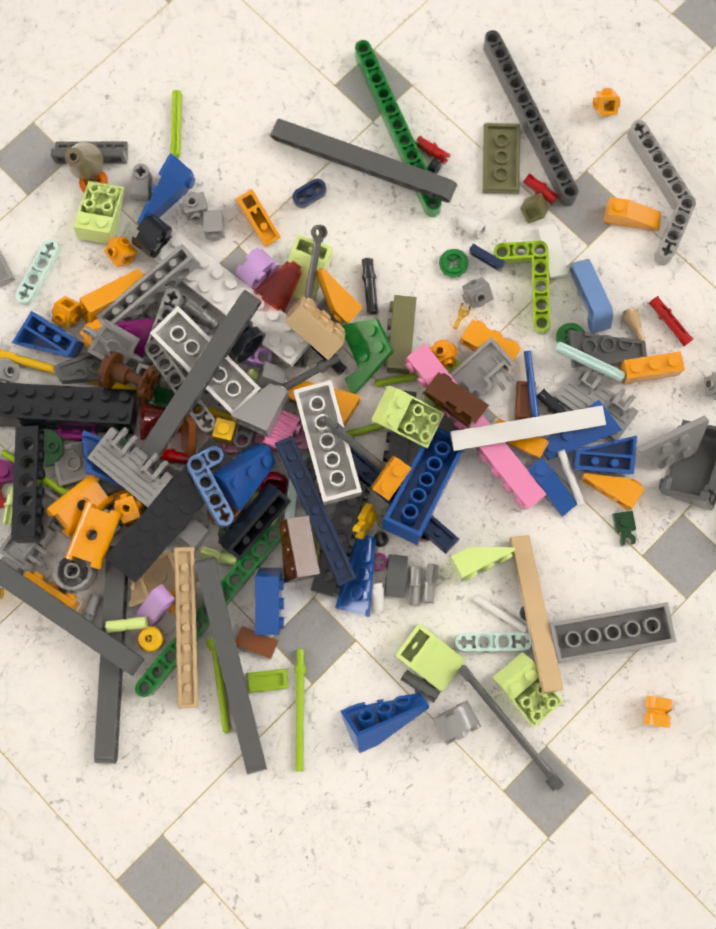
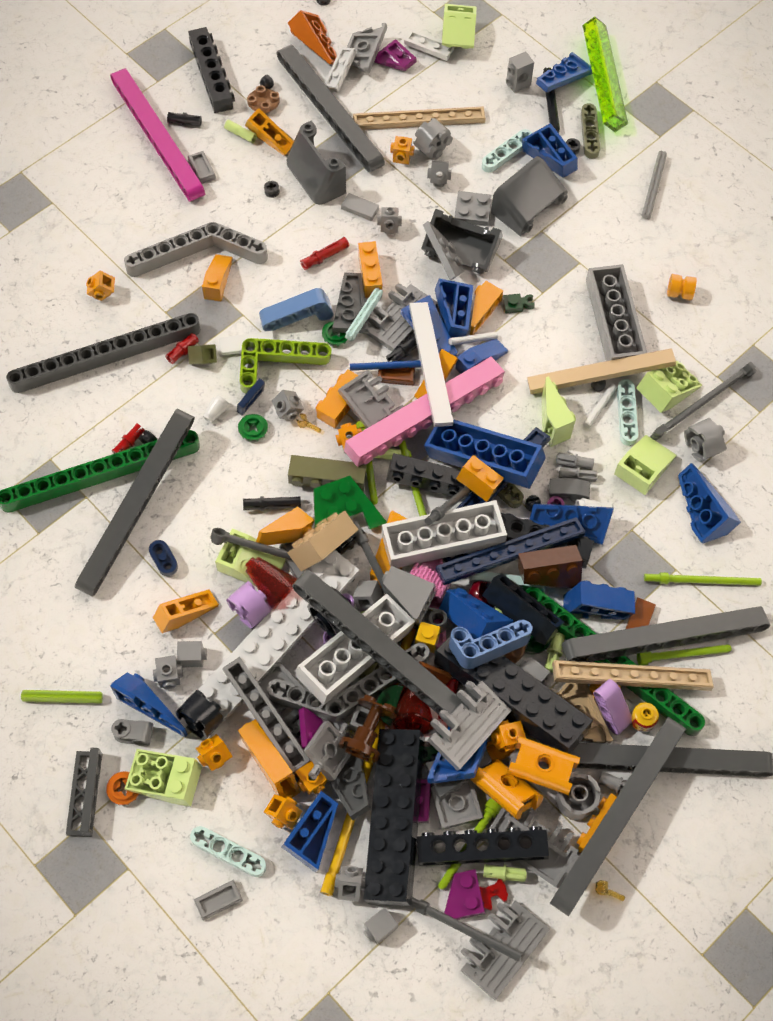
camera: 95 degrees left, 15 degrees down
(53, 447) = (440, 821): dark green plate -> none
(84, 160) = (101, 790): dark tan cone -> none
(129, 624) = (633, 736): yellowish green piece -> none
(201, 314) = (292, 664): light grey axle -> none
(267, 680) = (675, 604): lime tile -> none
(366, 519) = (514, 508): yellow plate -> none
(407, 416) = (419, 459): yellowish green slope -> none
(420, 685) = (672, 473): dark grey pin -> none
(455, 400) = (407, 412): reddish brown wedge -> none
(501, 158) = (144, 381): olive tile -> none
(632, 319) = (324, 281): tan cone -> none

